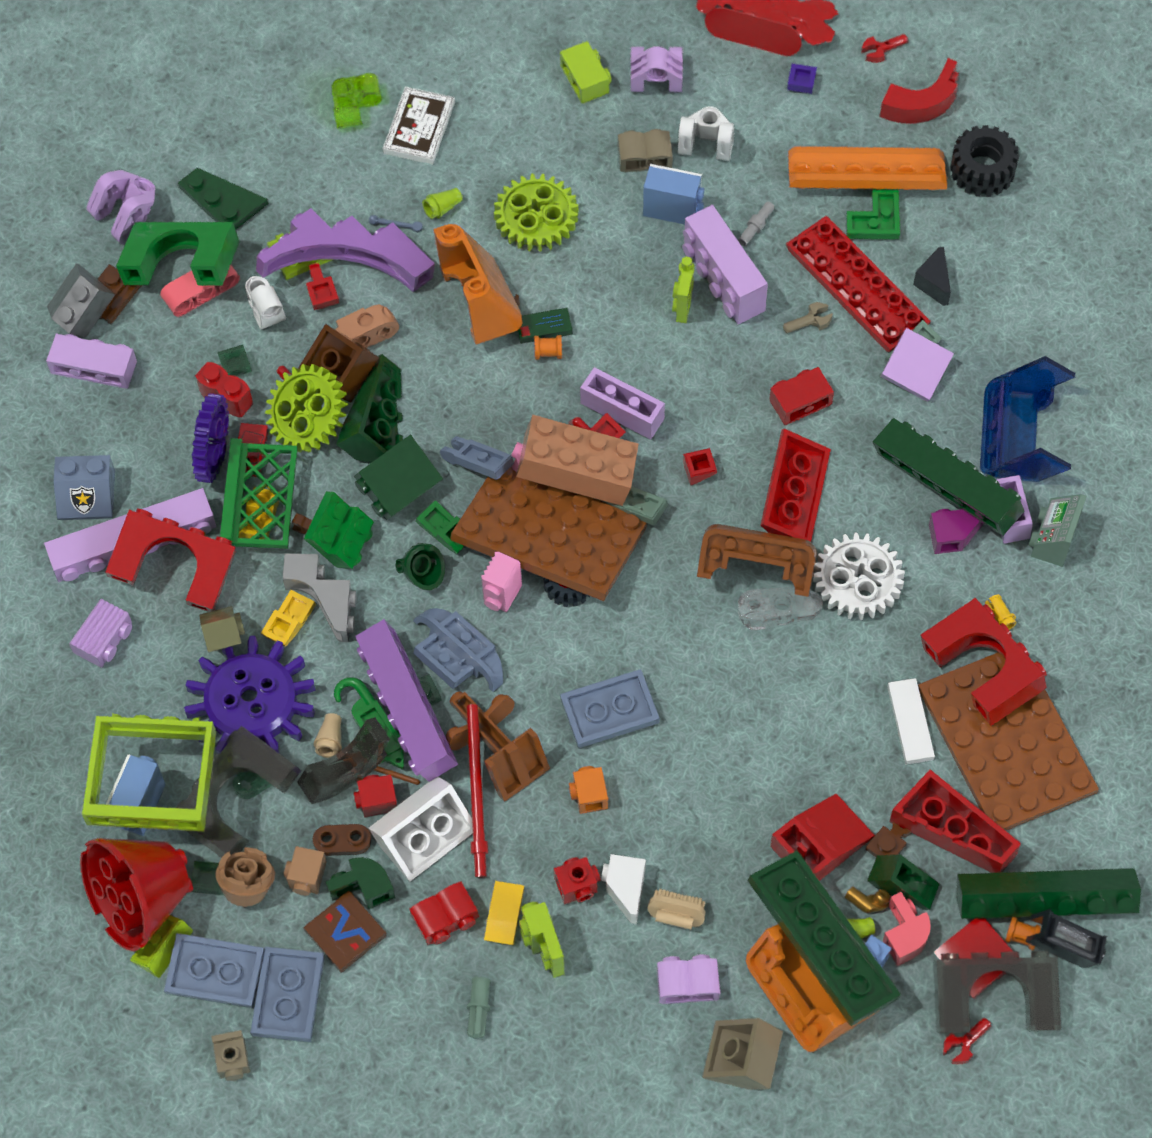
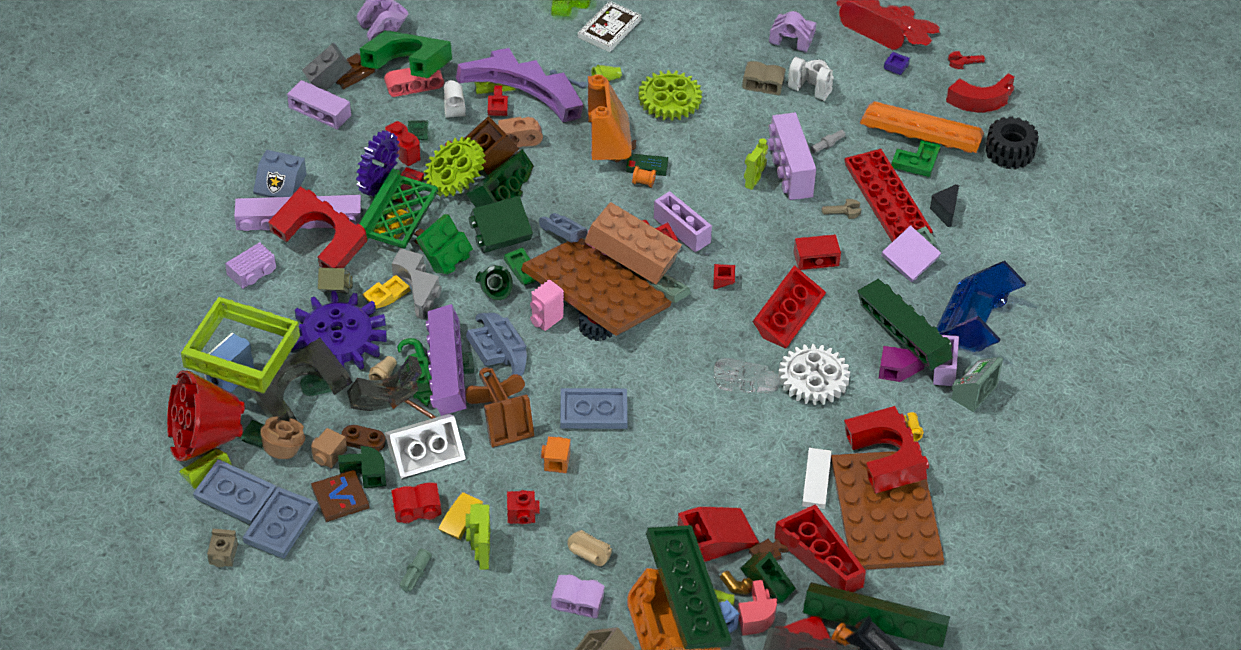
camera: 15 degrees right, 15 degrees down
(221, 198) = (448, 29): dark green wing -> none
(375, 795) = (399, 414): red brick -> none
(479, 846) = (460, 468): red bar -> none
(585, 72) = (741, 21): lime brick -> none
(624, 883) = (558, 520): white slope -> none
(672, 194) = (769, 100): medium blue piece -> none
(792, 553) = (720, 318): dark orange windscreen -> none

